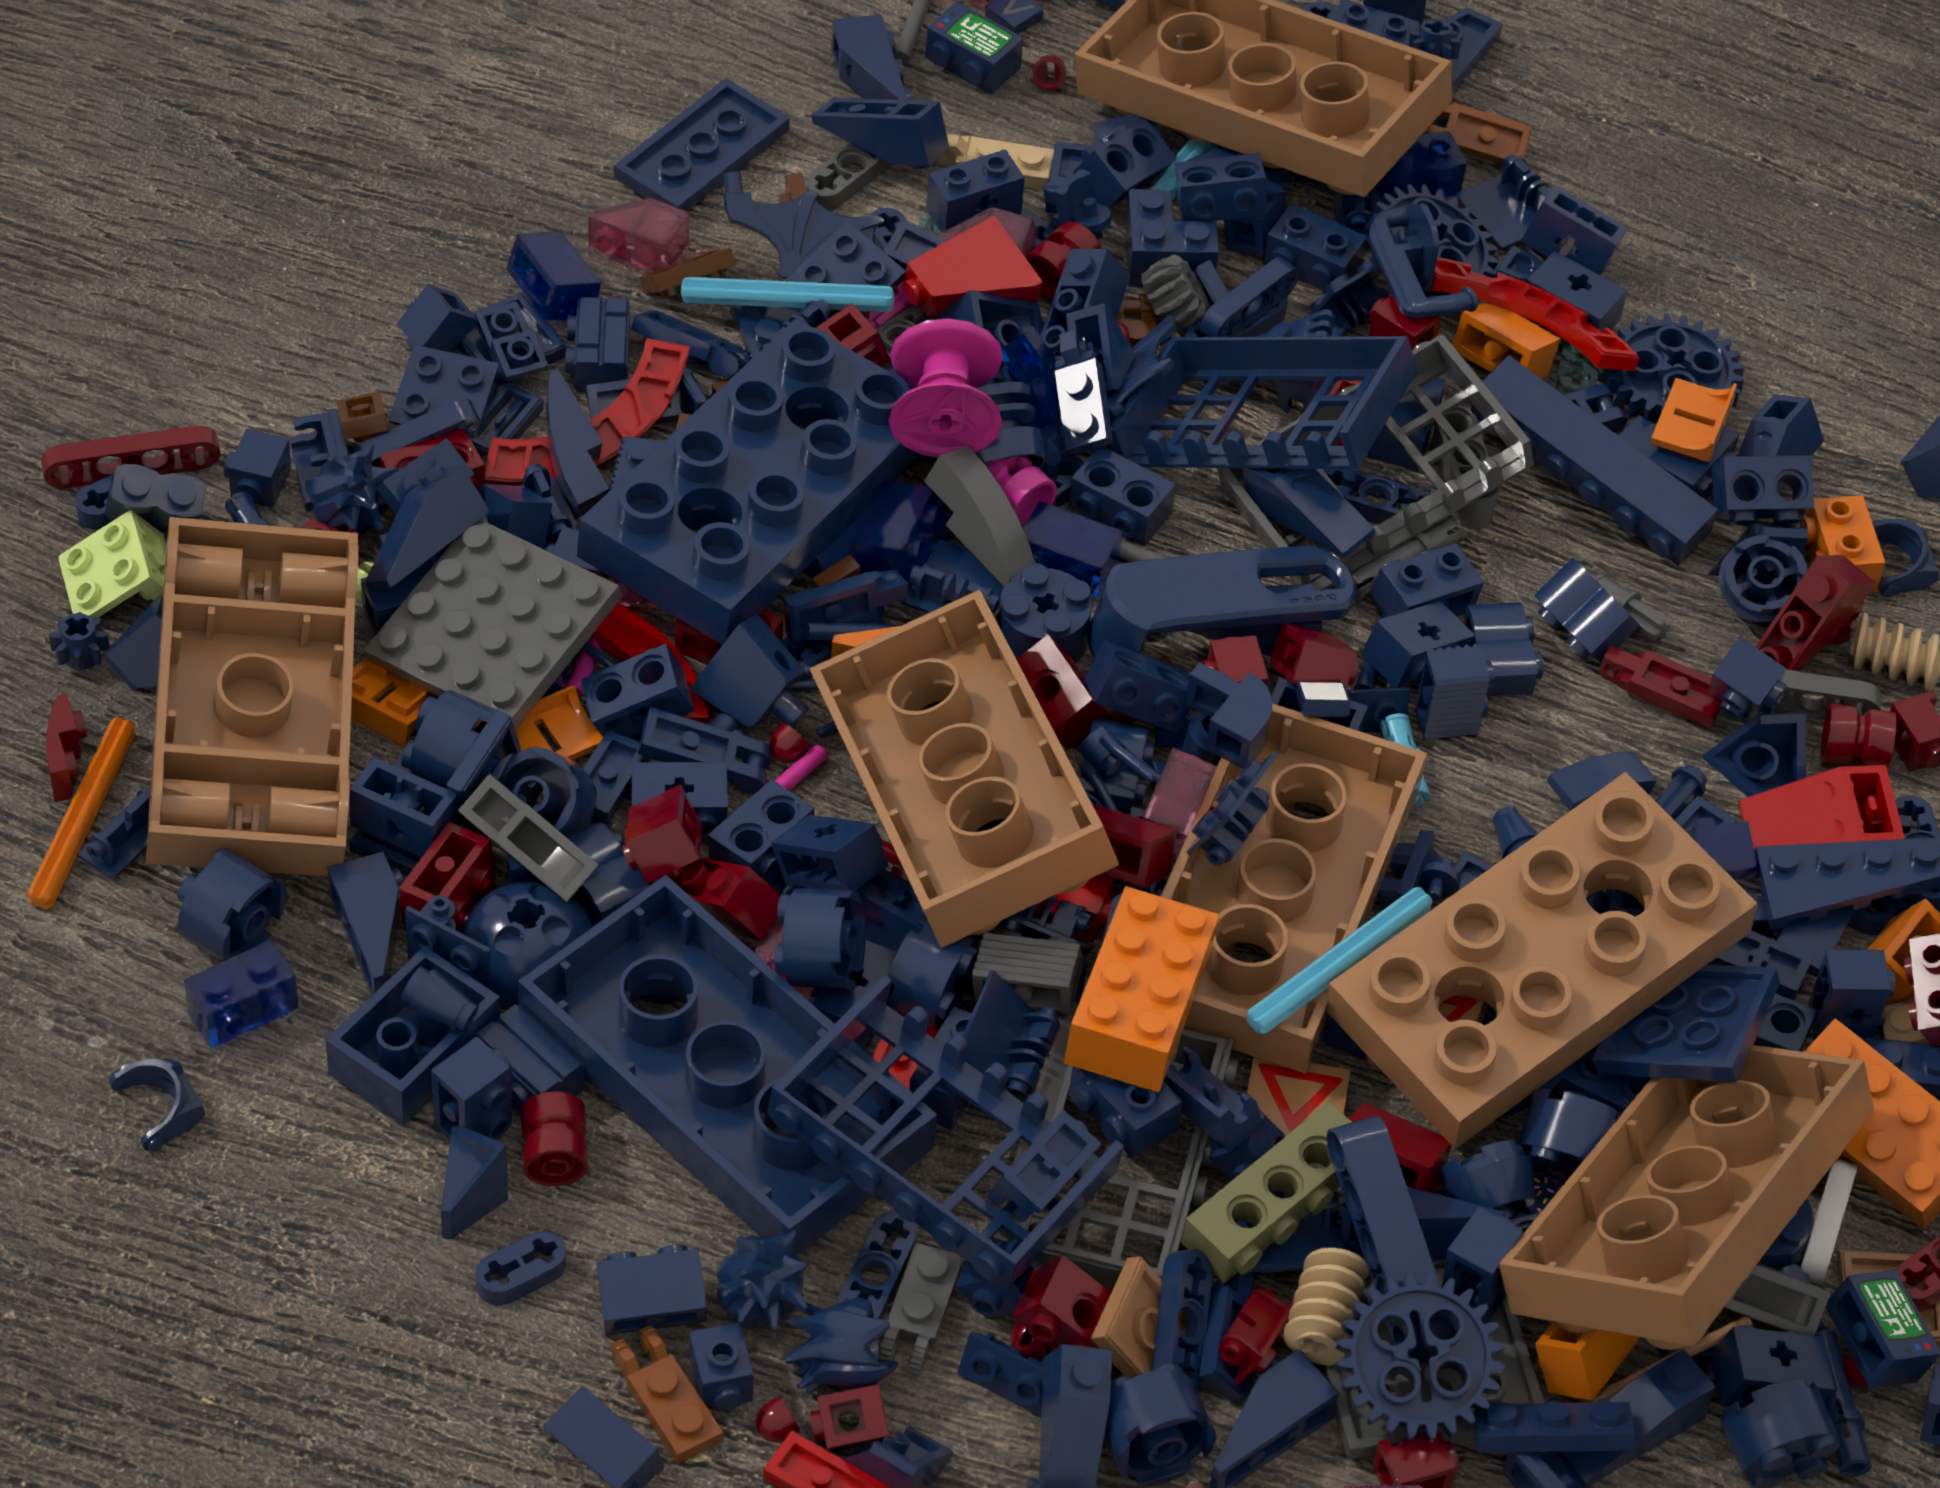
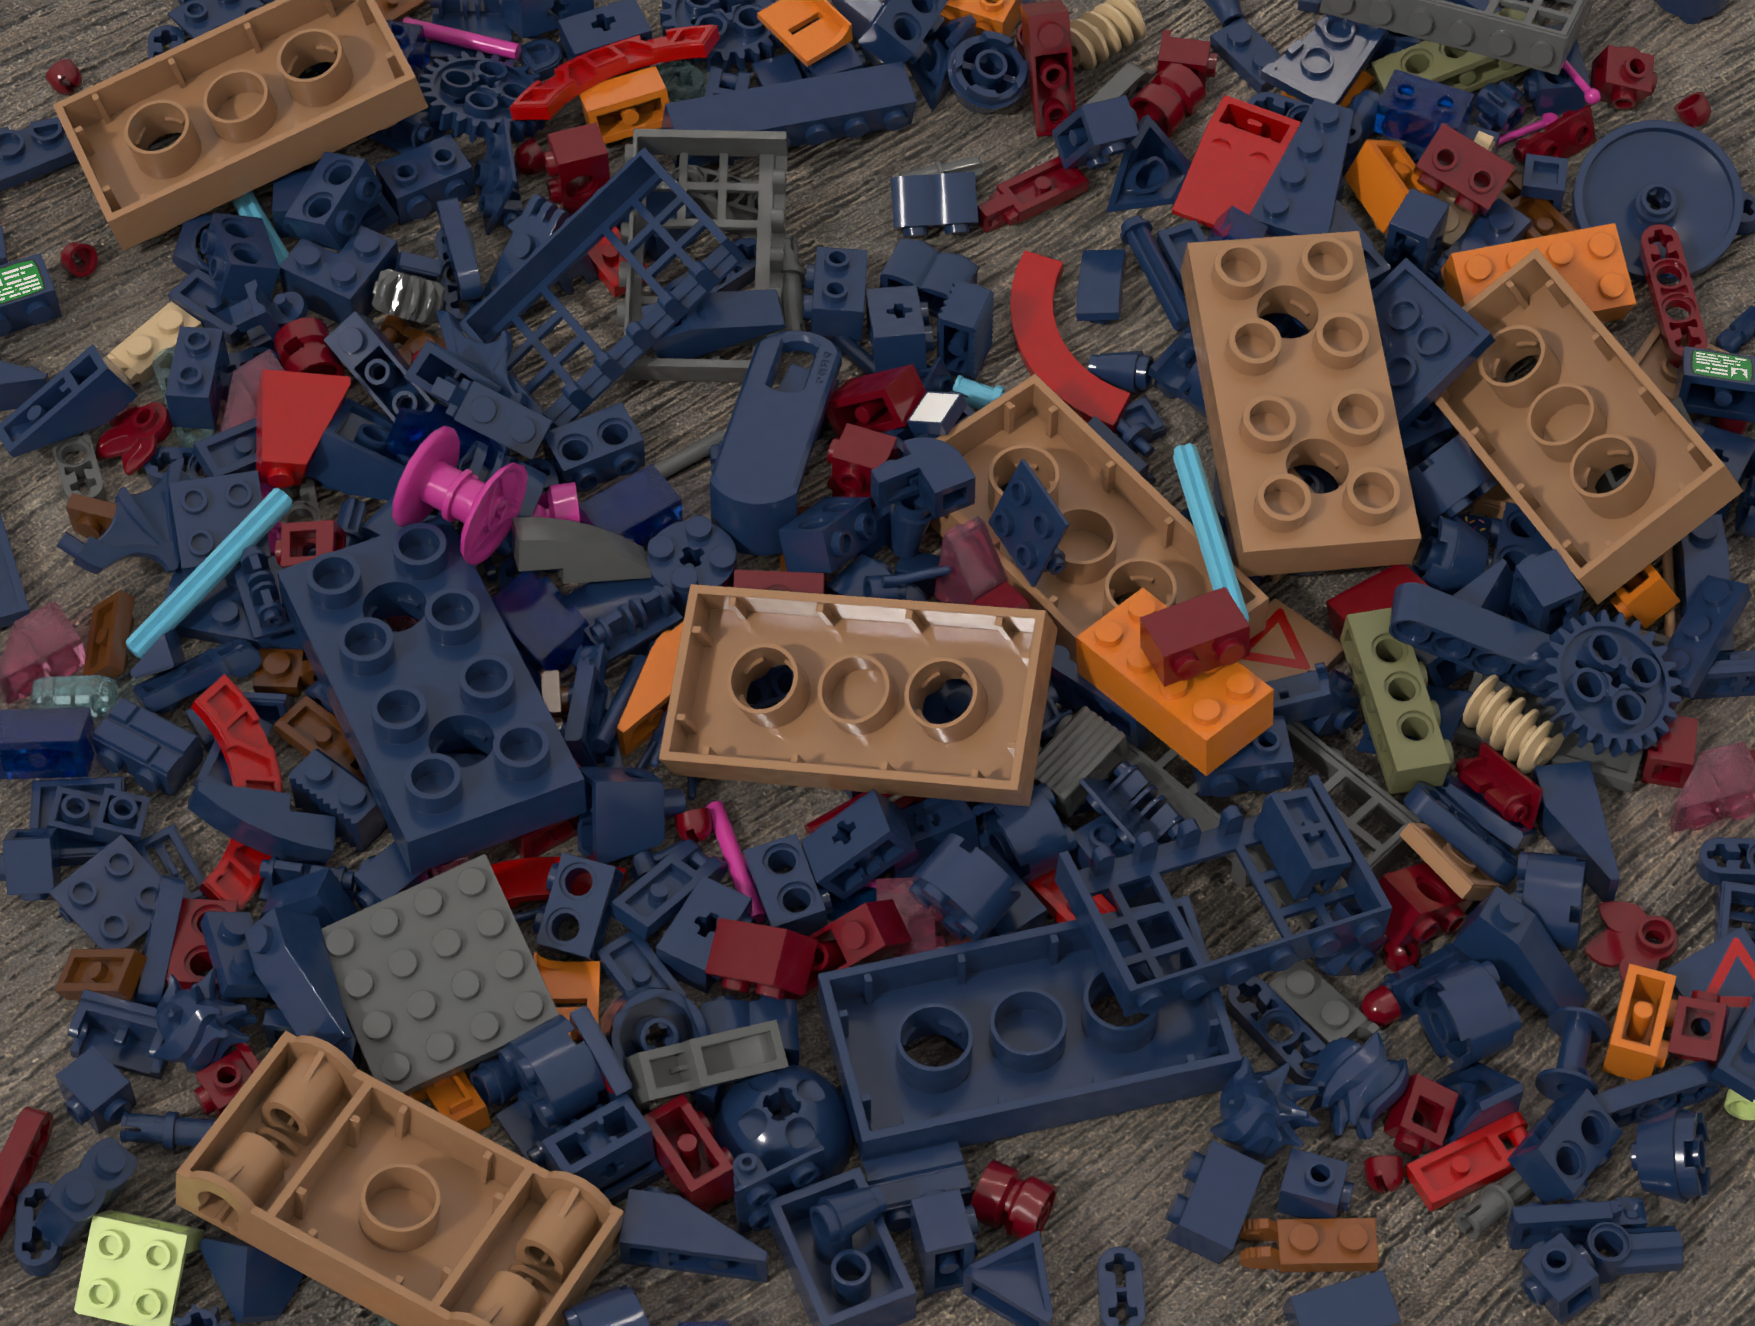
camera: 55 degrees left, 5 degrees up
(617, 274) = (74, 692): none -> clear light blue beam
(692, 306) = (163, 655): none -> dark blue slope
(896, 190) = (135, 435): none -> dark red plate
(950, 1343) = (1381, 1006): none -> dark red hinge
(978, 1404) = (1466, 1013): none -> dark blue brick
(1168, 958) = (1195, 636): none -> dark red brick
(1412, 265) = (520, 104): dark blue piece -> none
(1488, 203) = (468, 39): none -> dark pink bar
(1504, 766) = (1045, 351): none -> red tile

